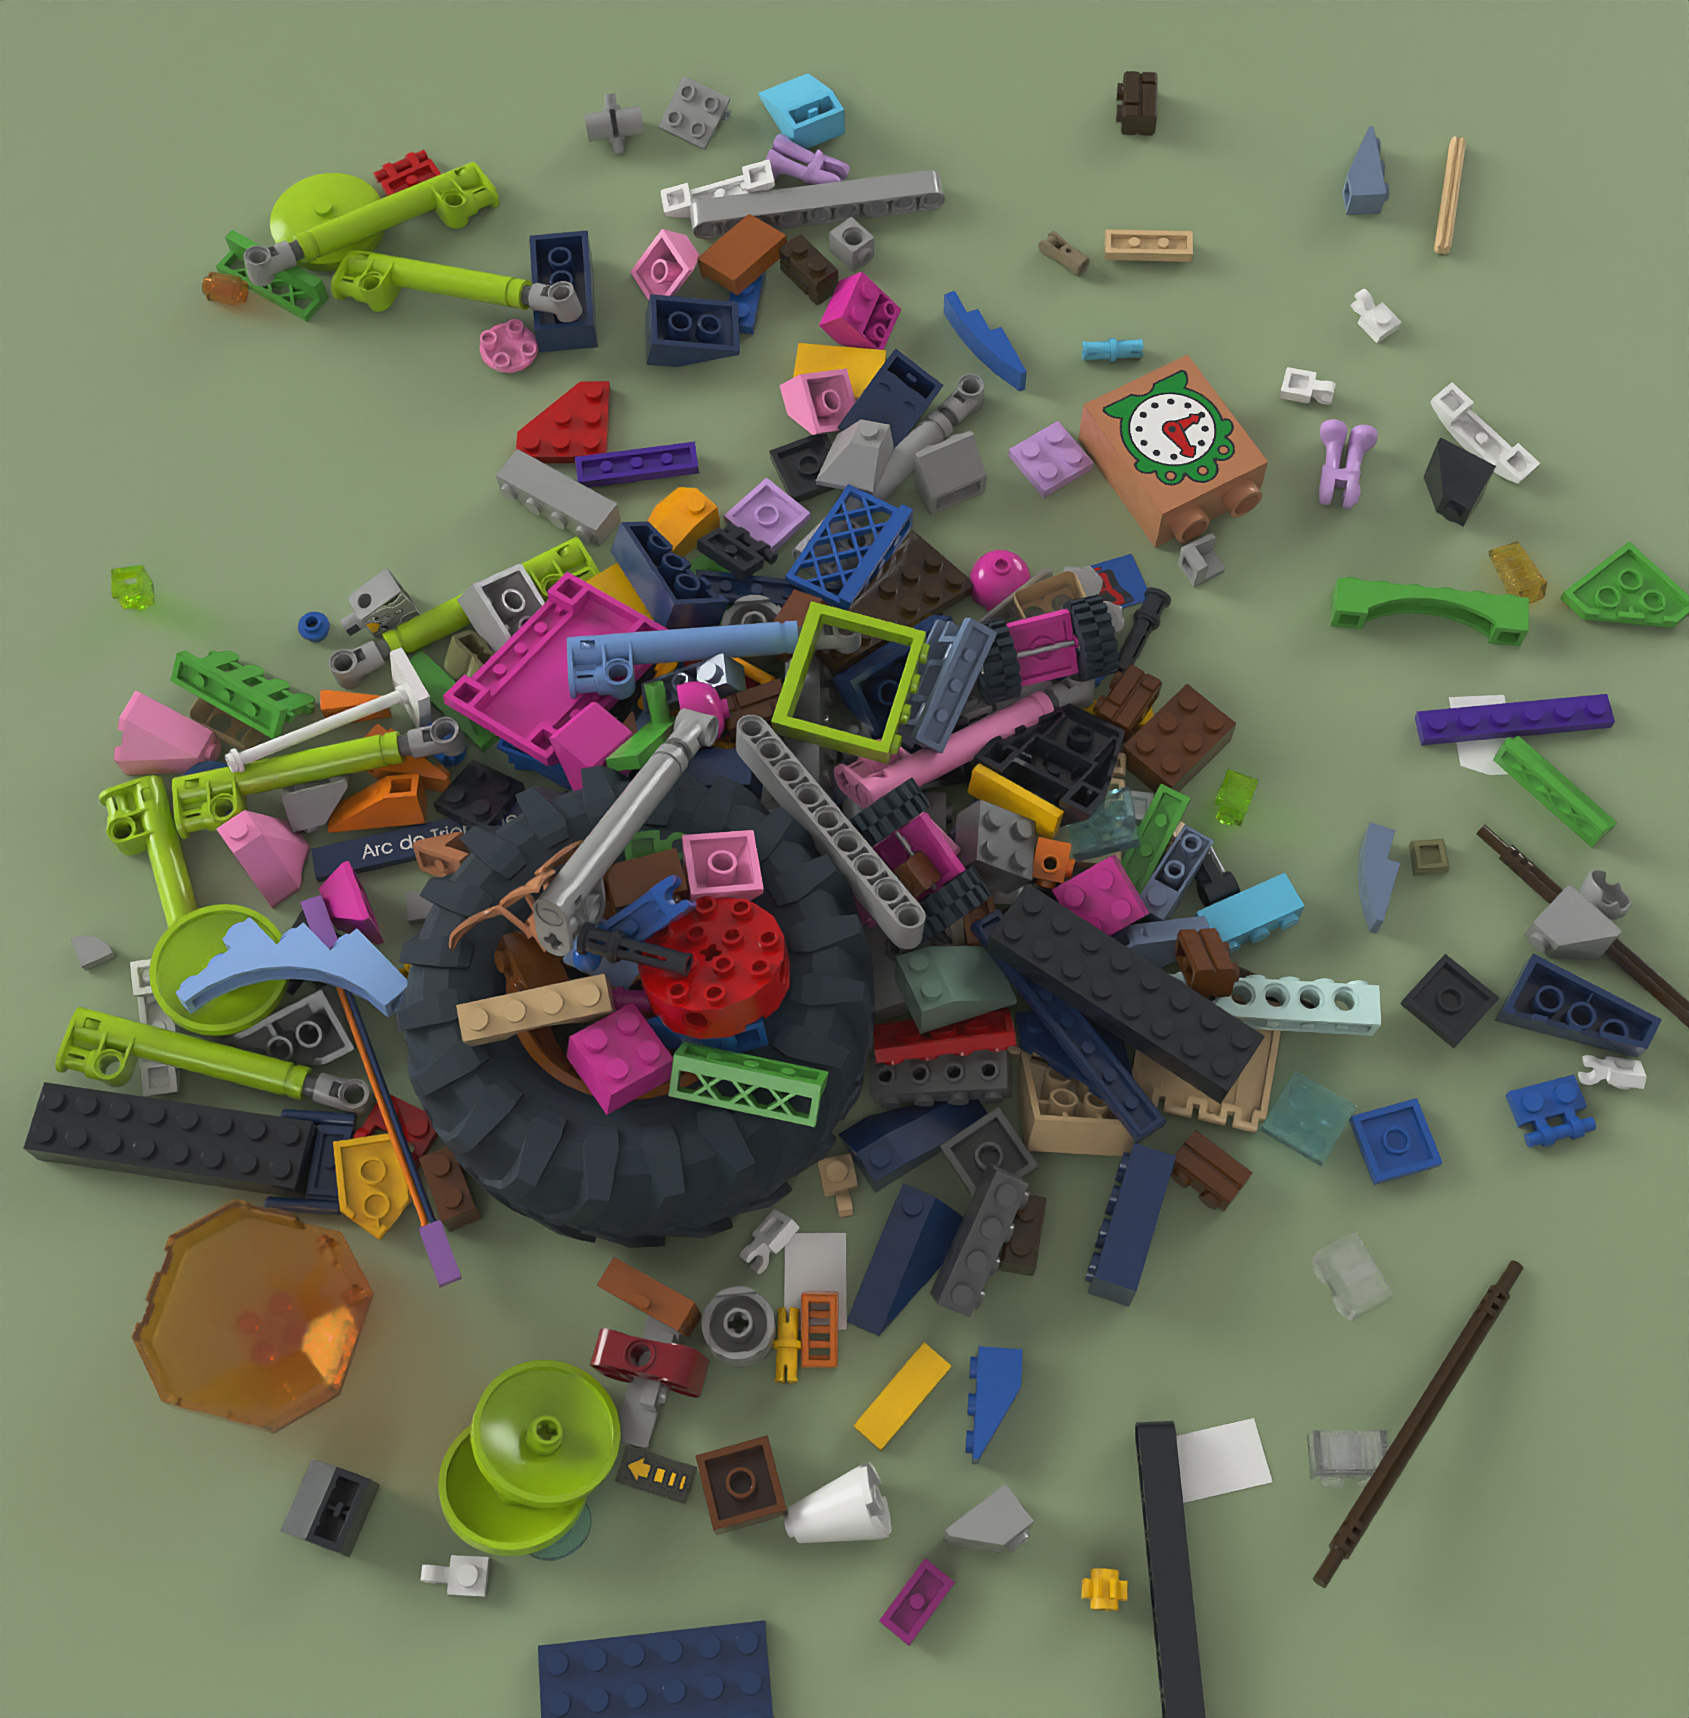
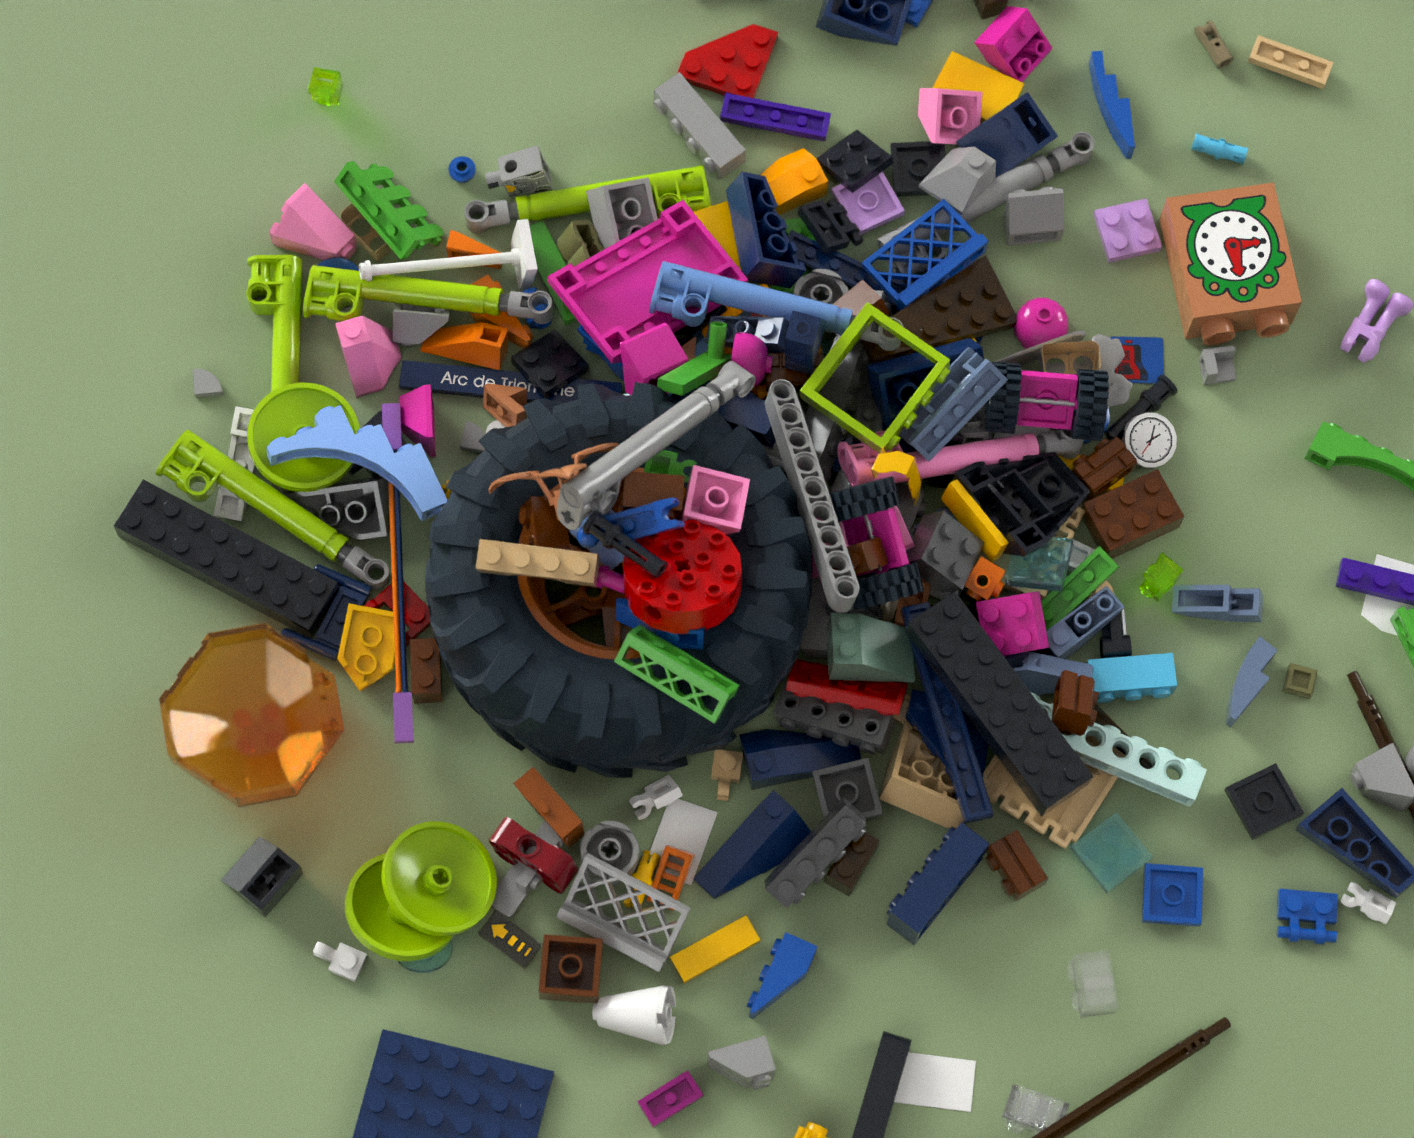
camera: 15 degrees right, 5 degrees up
(619, 1058) = (587, 620): dark pink brick -> none
(739, 480) = (854, 161): none -> black plate
(755, 665) = (803, 342): none -> dark blue slope
(782, 1421) = (618, 934): none -> light grey fence
(912, 760) = (902, 464): none -> yellow piece
(1164, 656) = (1150, 439): none -> white tile
(1301, 386) = (1369, 237): white plate -> none
(1307, 803) = (1218, 602): none -> sand blue slope

